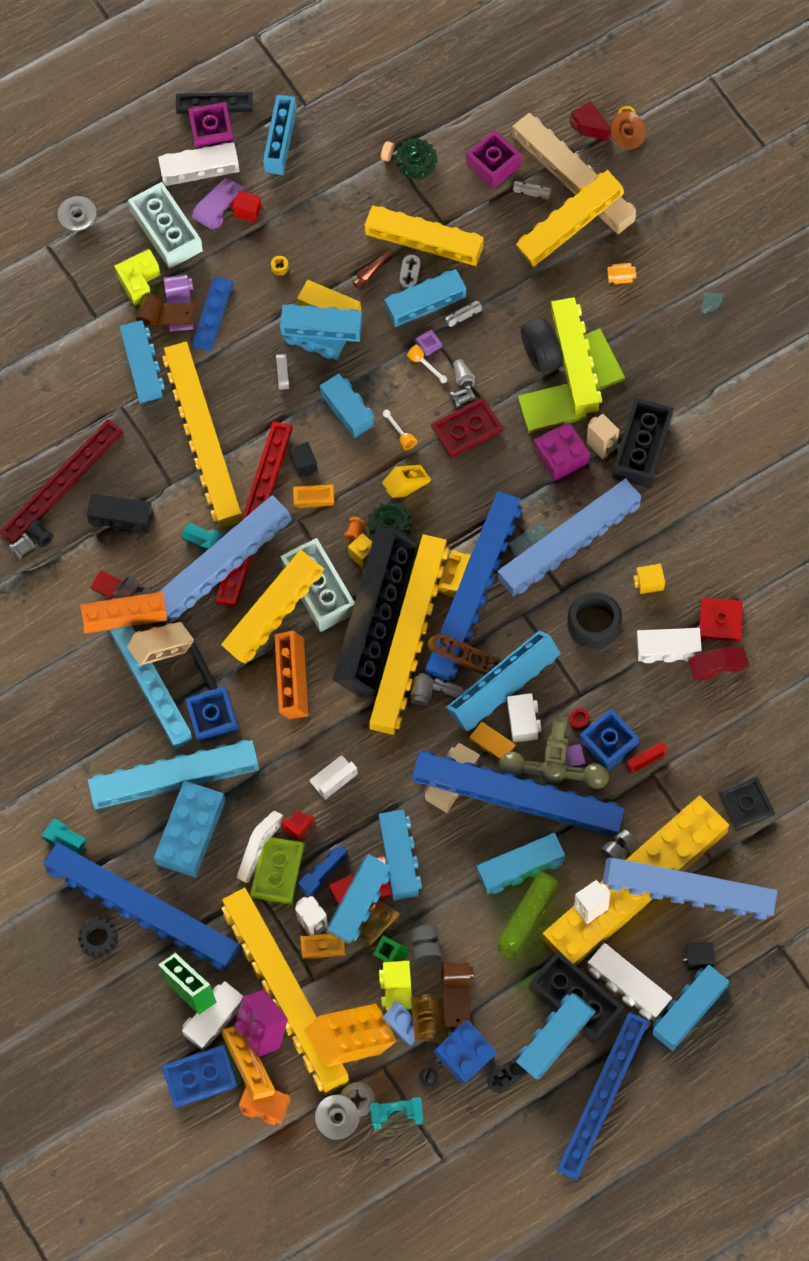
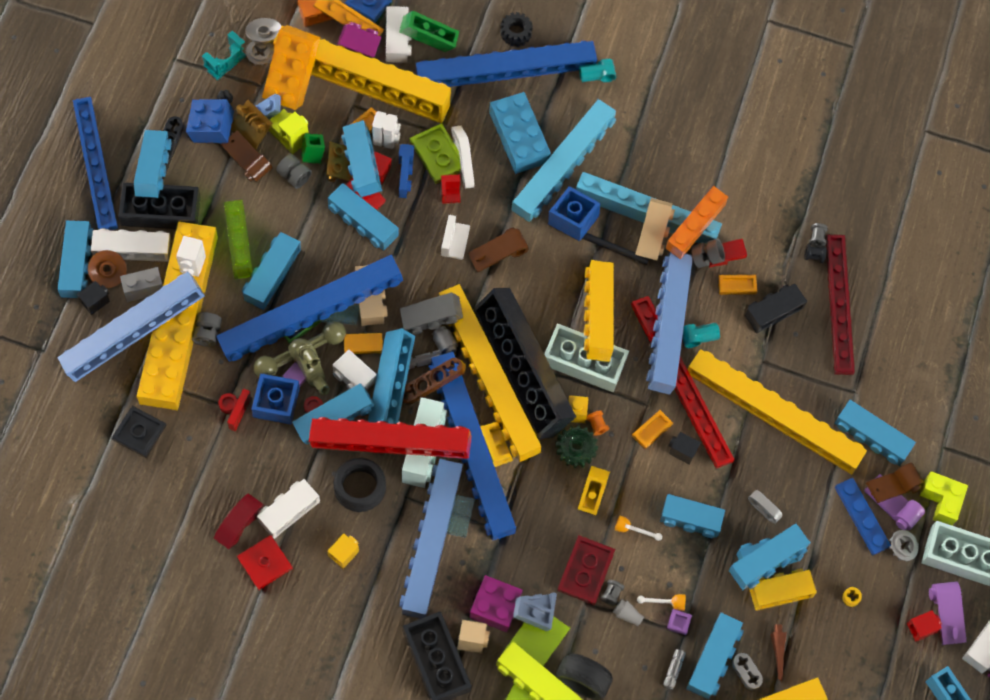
camera: 130 degrees right, 0 degrees up
(129, 559) = (737, 284): none -> light orange tile
(200, 264) = (910, 549): none -> light grey gear
(291, 675) = (545, 280): orange brick -> none
(304, 734) = (507, 244): none -> reddish brown door
(416, 712) = (431, 313): none -> dark grey brick
(515, 610) = (418, 468): none -> light aqua brick
(534, 420) = (536, 610): none -> sand blue wing
(546, 616) = (390, 438): none -> red brick
(571, 688) = (346, 406): none -> dark azure brick
(647, 935) = (141, 284): none -> light grey brick
(650, 775) = (227, 403): none -> red tile
(668, 974) = (107, 278): none -> dark orange dish

